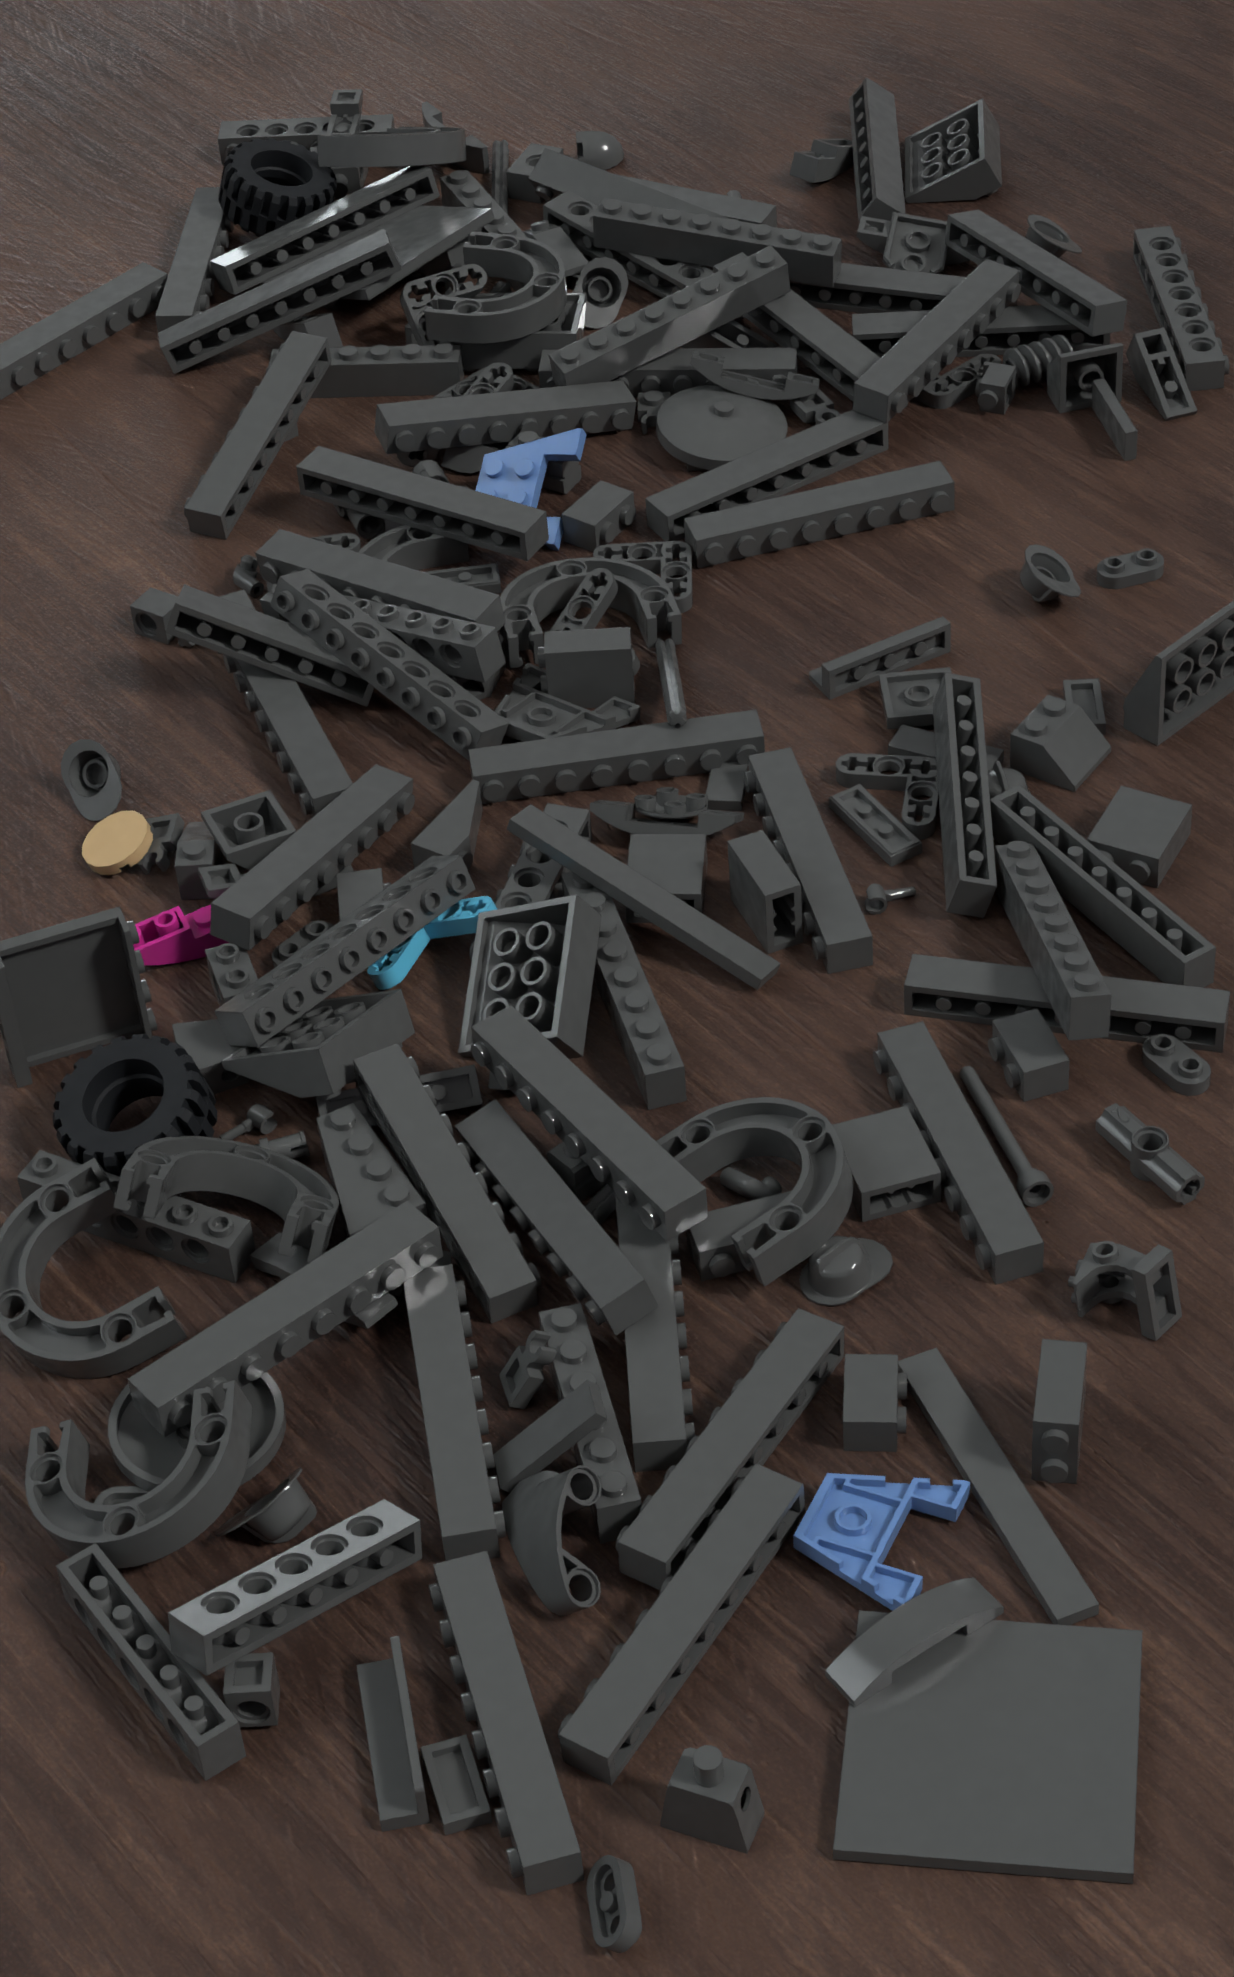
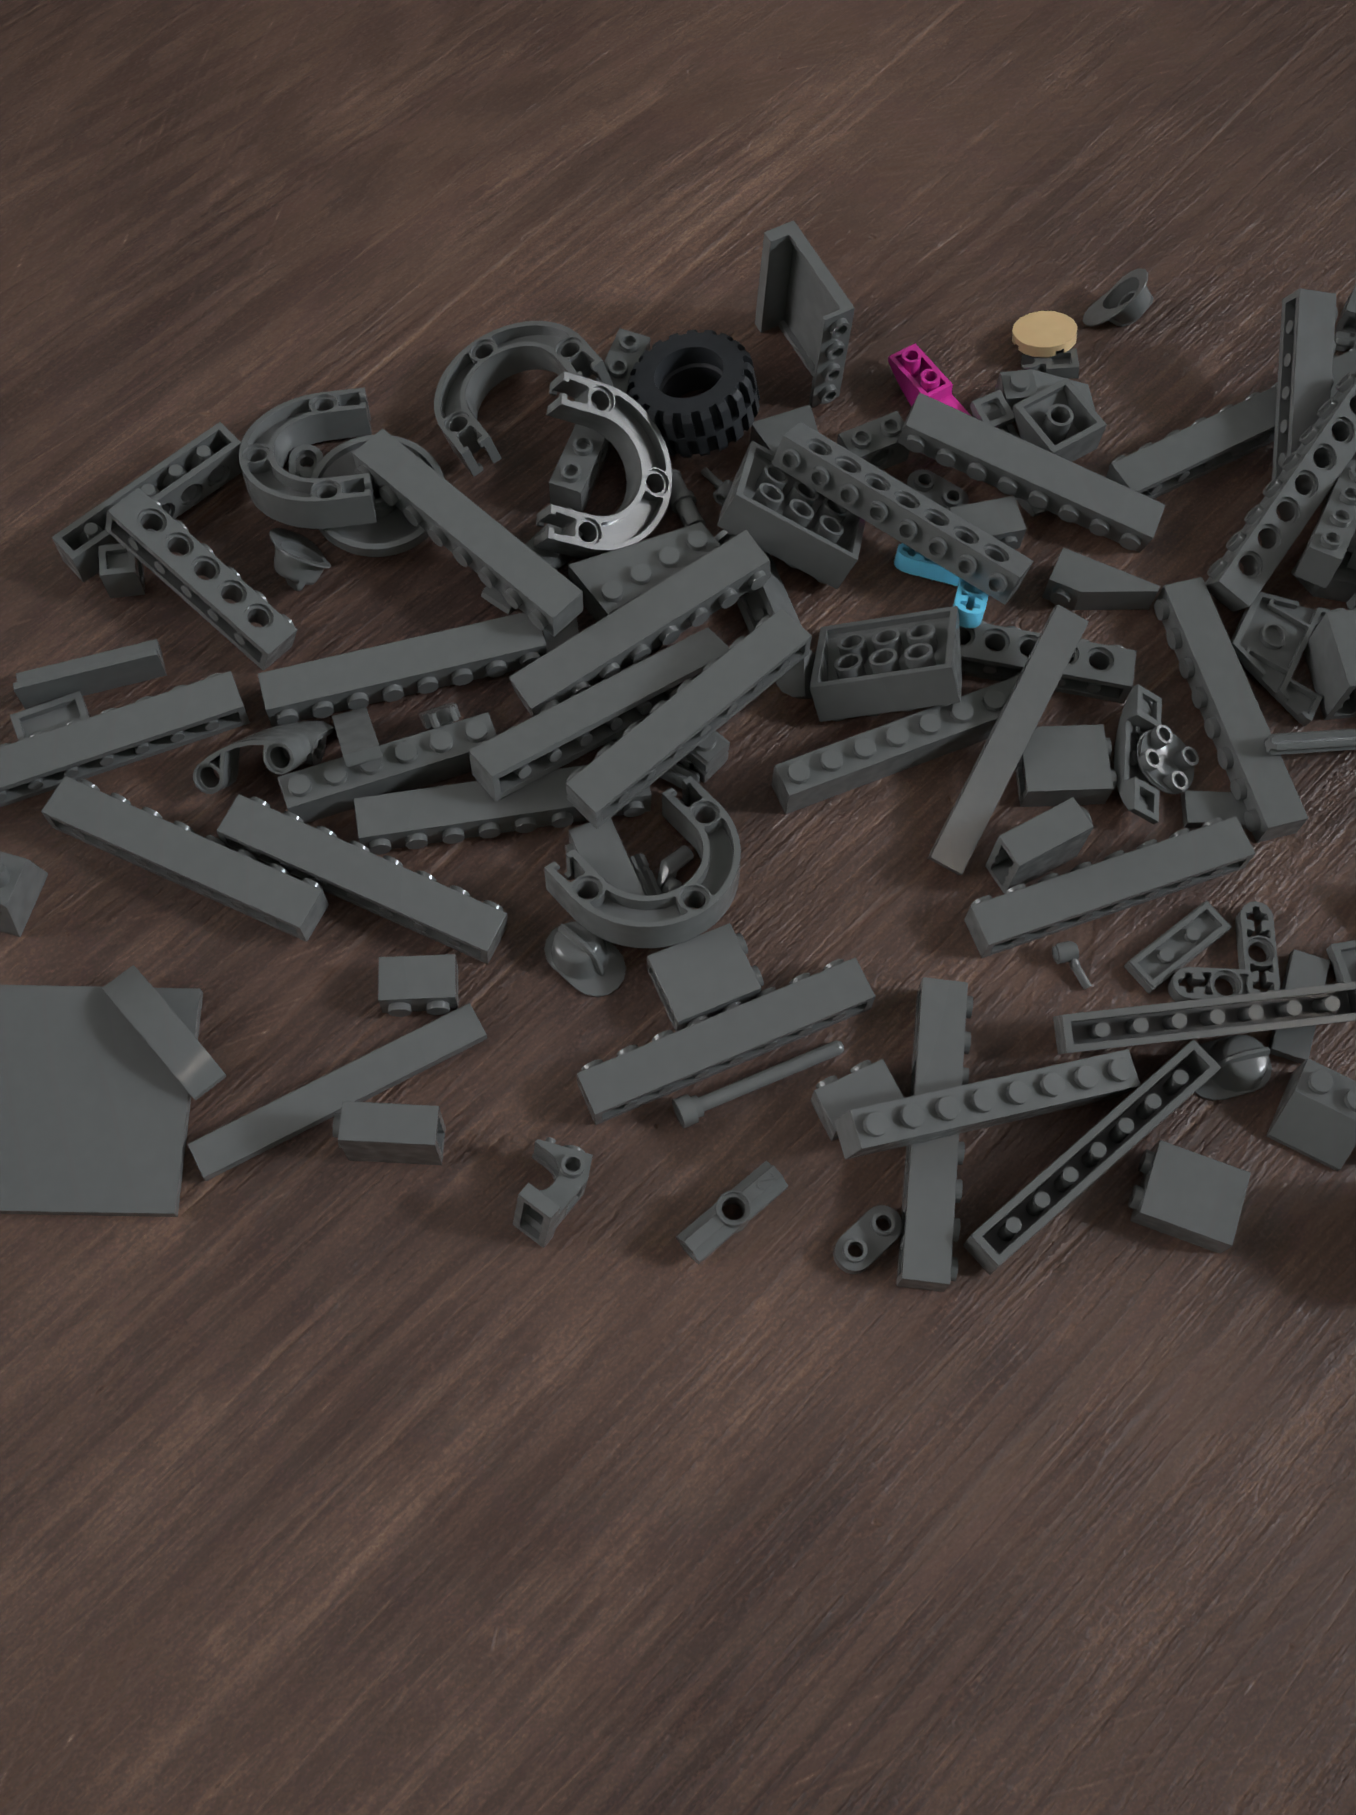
camera: 75 degrees right, 25 degrees up
(857, 1521) = (285, 979): medium blue wing -> none

